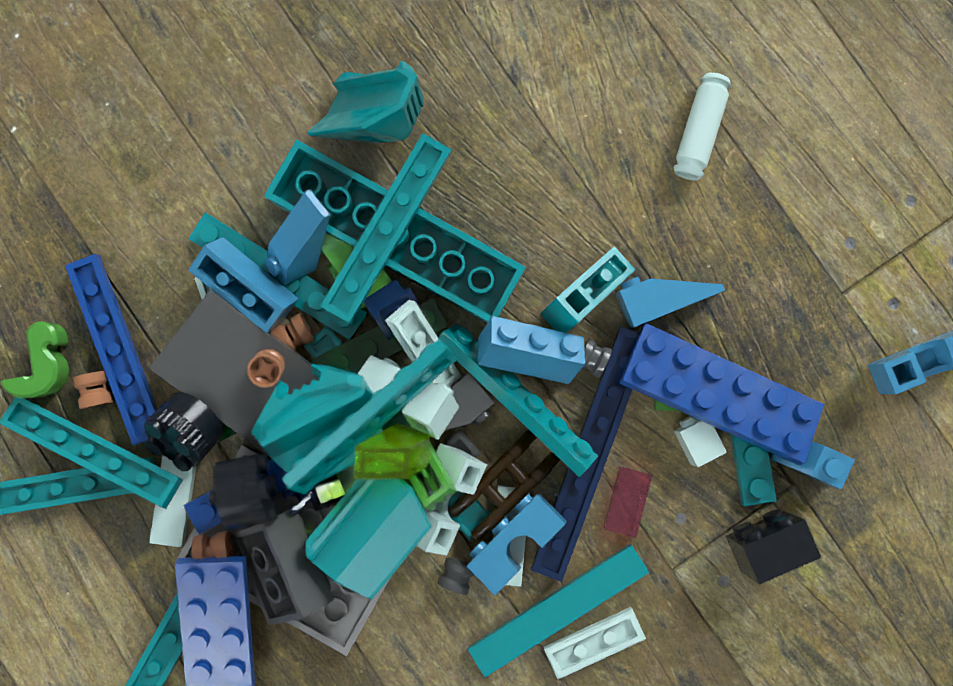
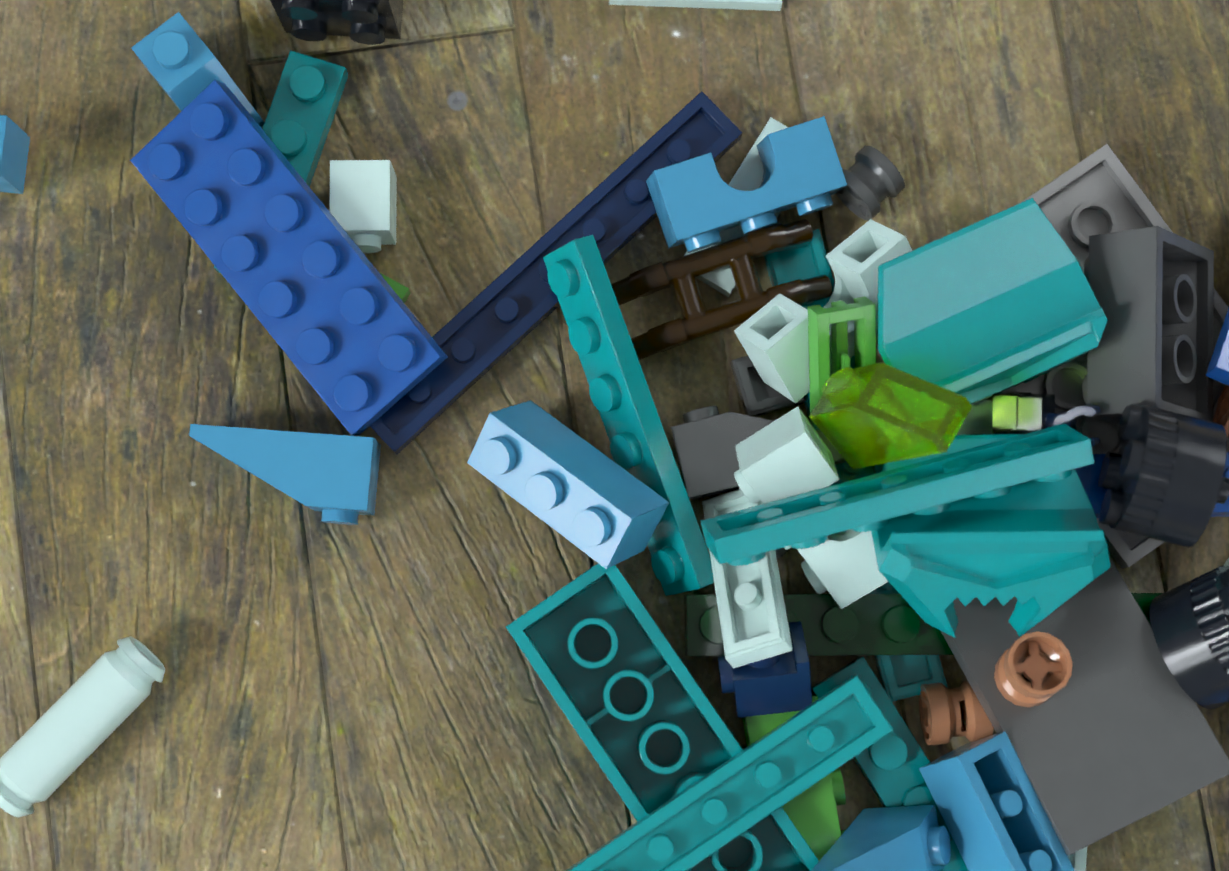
camera: 160 degrees left, 5 degrees down
(557, 610) = (728, 53): teal tile -> none
(587, 291) = (419, 538): teal slope -> none
(596, 357) = (462, 420): dark grey wheel -> none
(627, 501) = (529, 166): clear pink tile -> none

